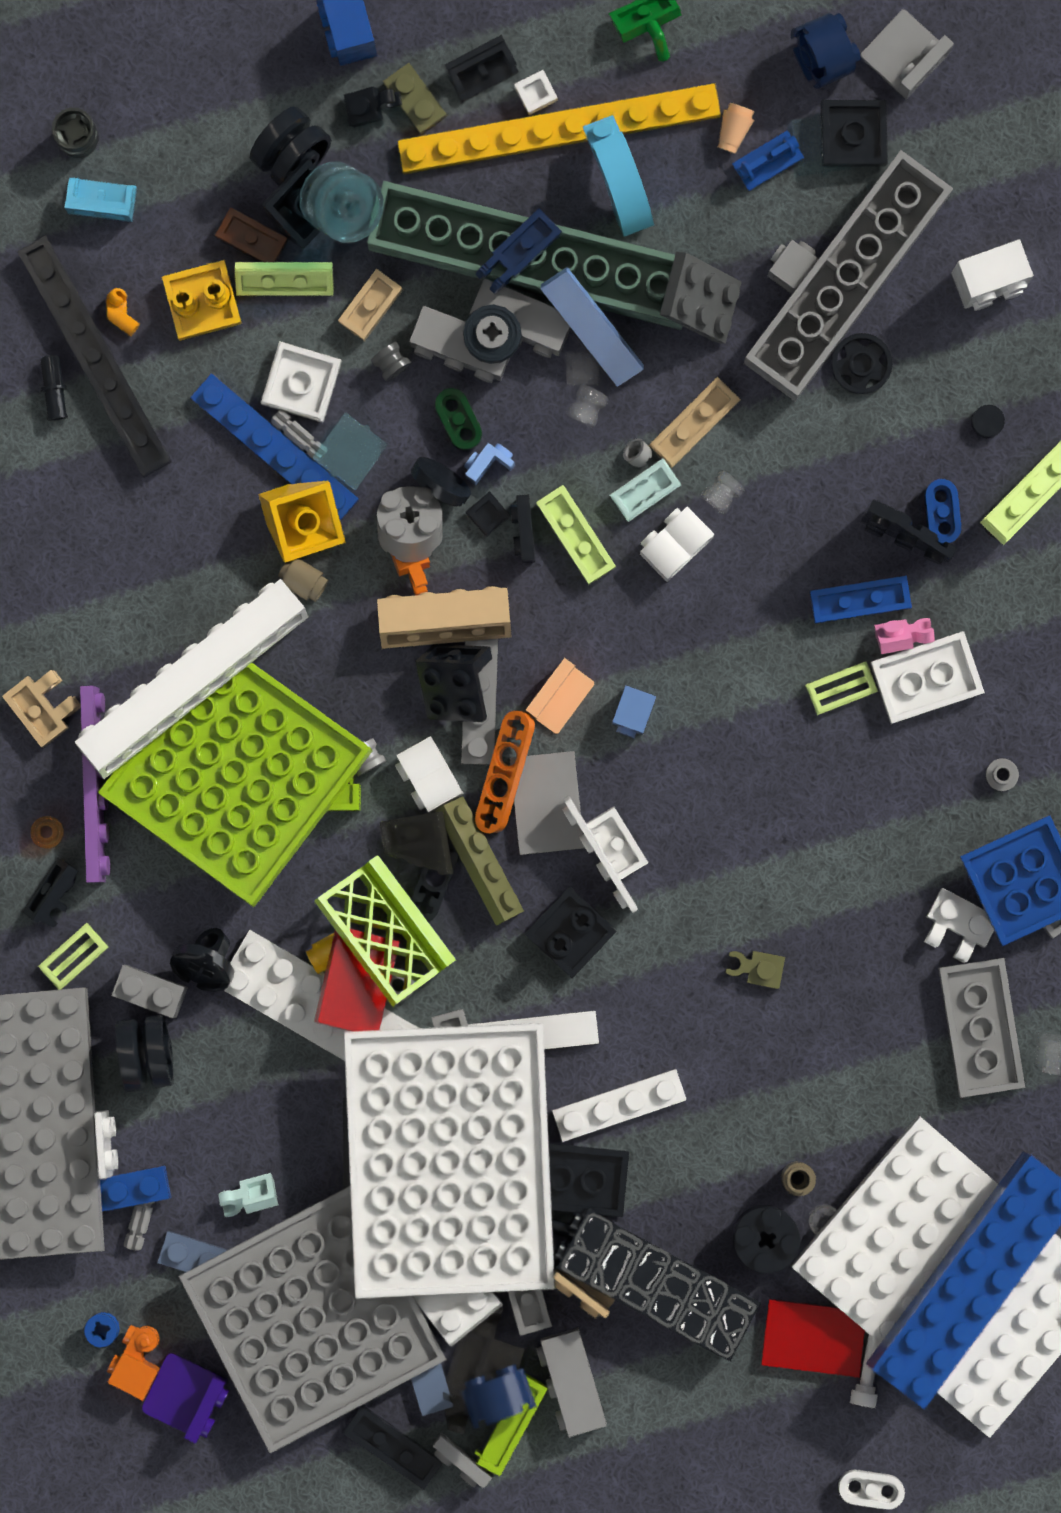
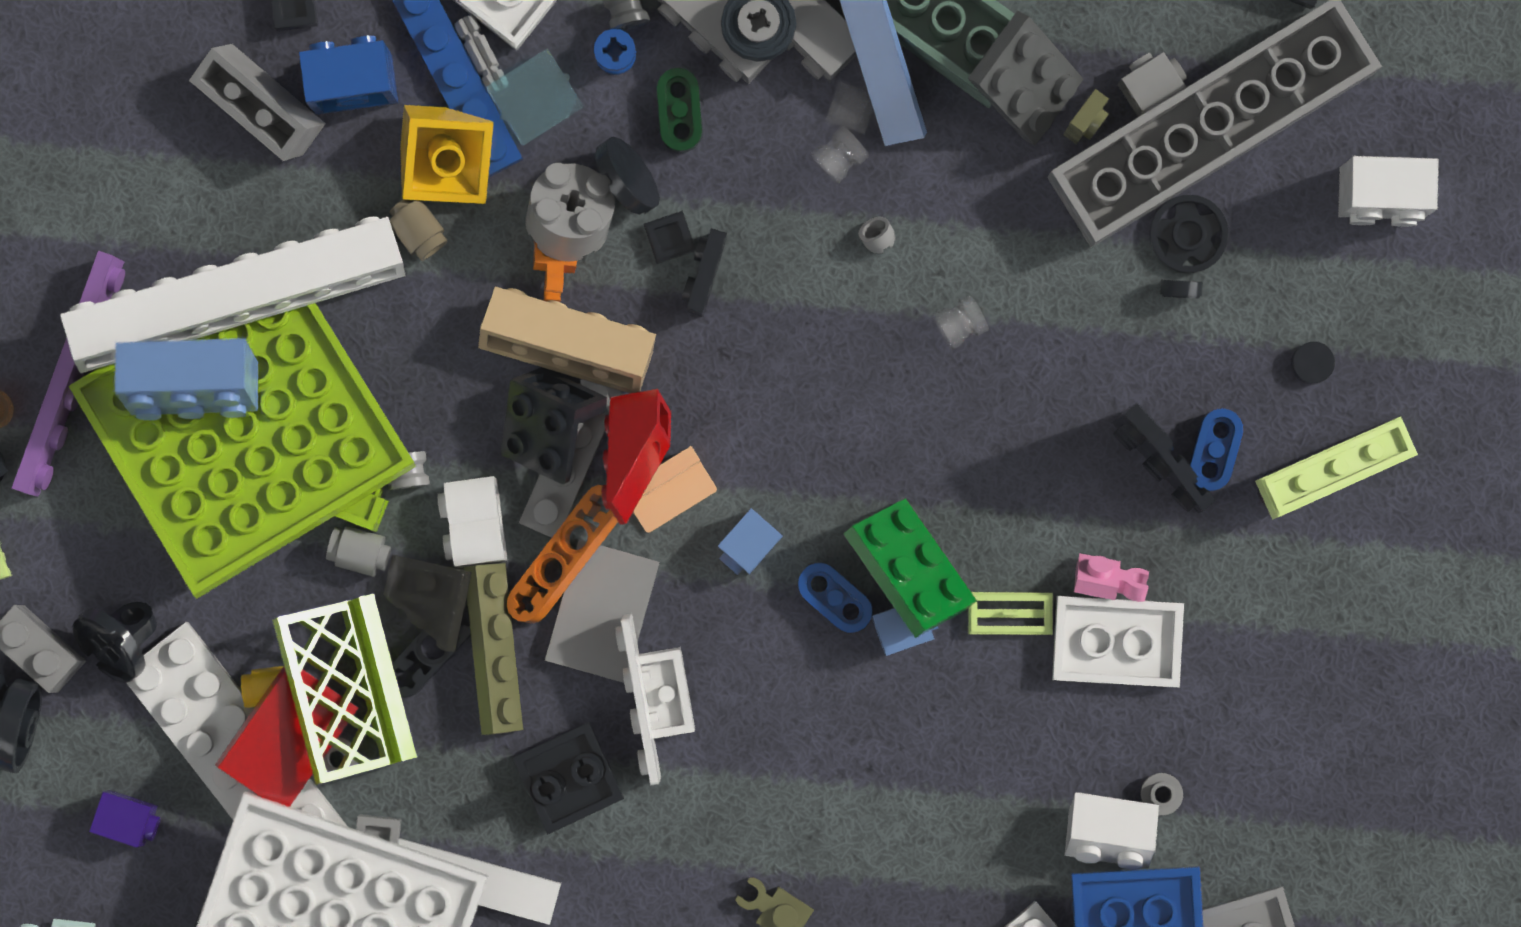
camera: 15 degrees right, 0 degrees up
(35, 710) = (36, 259): tan plate -> none
(151, 533) = (257, 102): none -> light grey brick
(184, 751) = (186, 378): none -> medium blue brick
(210, 488) = (348, 75): none -> blue brick
(263, 1088) = (125, 819): none -> dark purple brick
(353, 829) = (358, 551): none -> light grey brick
(397, 400) = (616, 60): none -> blue wheel
(480, 463) = (683, 173): light blue bracket -> none
(525, 670) = (637, 443): none -> red slope
(576, 534) = (764, 303): yellowish green plate -> none
(645, 490) = (869, 283): light aqua plate -> none
(676, 543) = (880, 361): white brick -> none
(694, 422) = (960, 225): tan tile -> none
(711, 725) = (835, 597): none -> blue plate
(757, 309) = (1088, 118): none -> olive plate
(757, 683) = (910, 567): none -> green plate
(769, 727) = (895, 634): none -> medium blue brick
(860, 599) = (1075, 516): blue plate -> none
(872, 405) = (1181, 289): none -> black tile
(976, 814) = (1111, 831): none -> white brick

